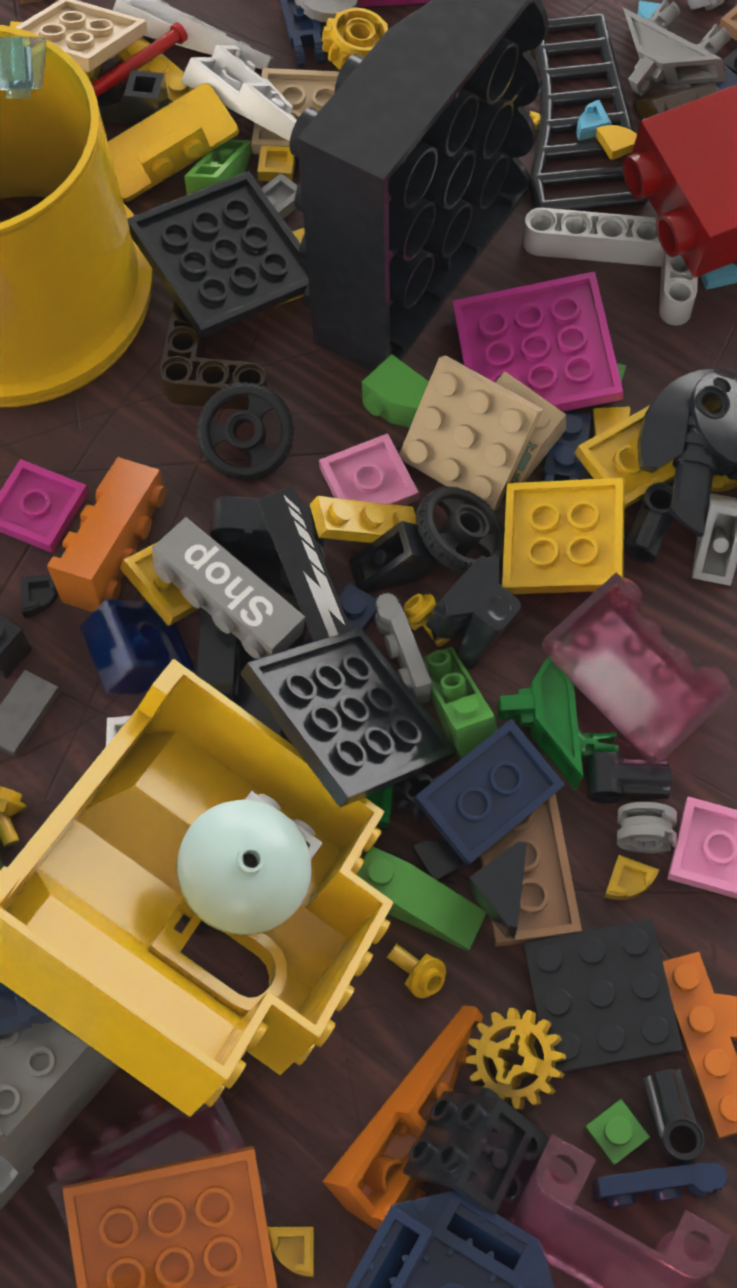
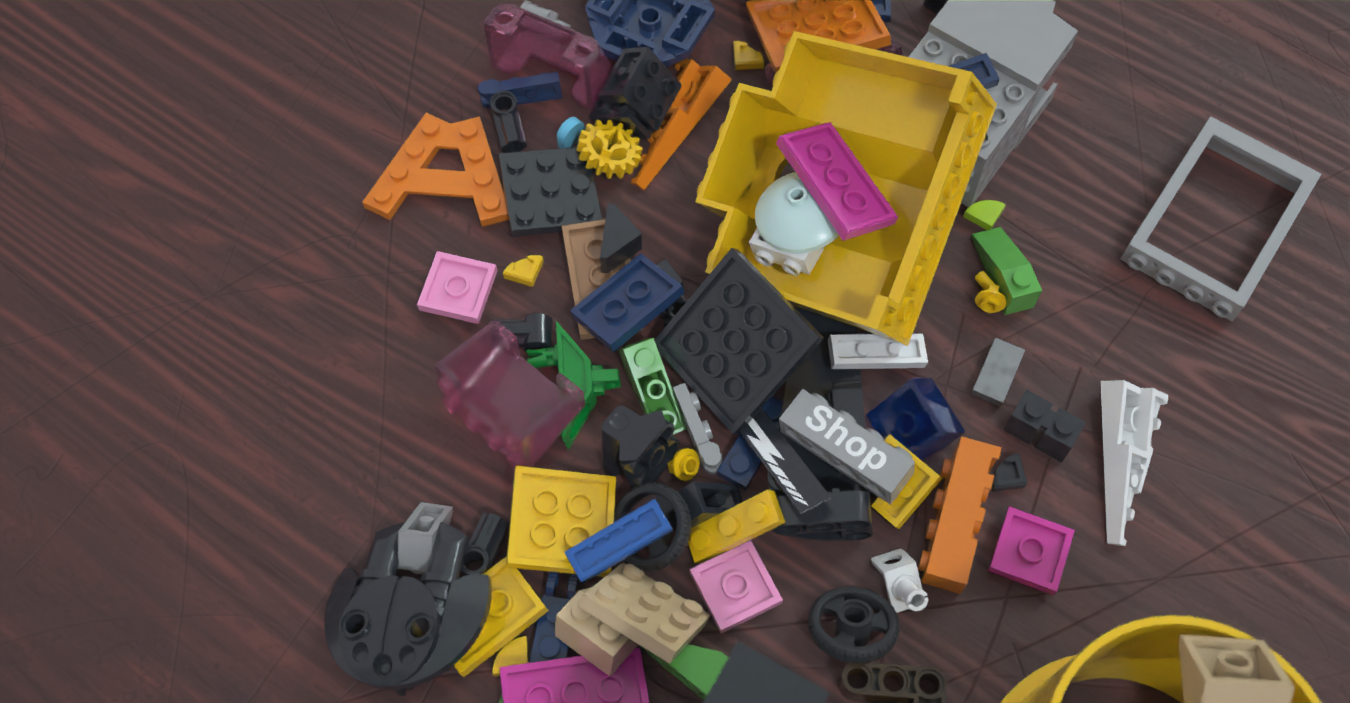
camera: 175 degrees right, 0 degrees up
(186, 474) = (901, 581): none -> white bracket
(193, 884) = (836, 181): none -> dark pink tile
(421, 972) = (671, 201): yellow plate -> none
(422, 899) = (679, 244): bright green slope -> none
(498, 496) = (618, 541): none -> blue plate
(574, 1099) = (569, 132): none -> medium azure tile
(616, 1133) = (544, 120): bright green plate -> none
(646, 827) = (510, 292): light grey wheel -> none

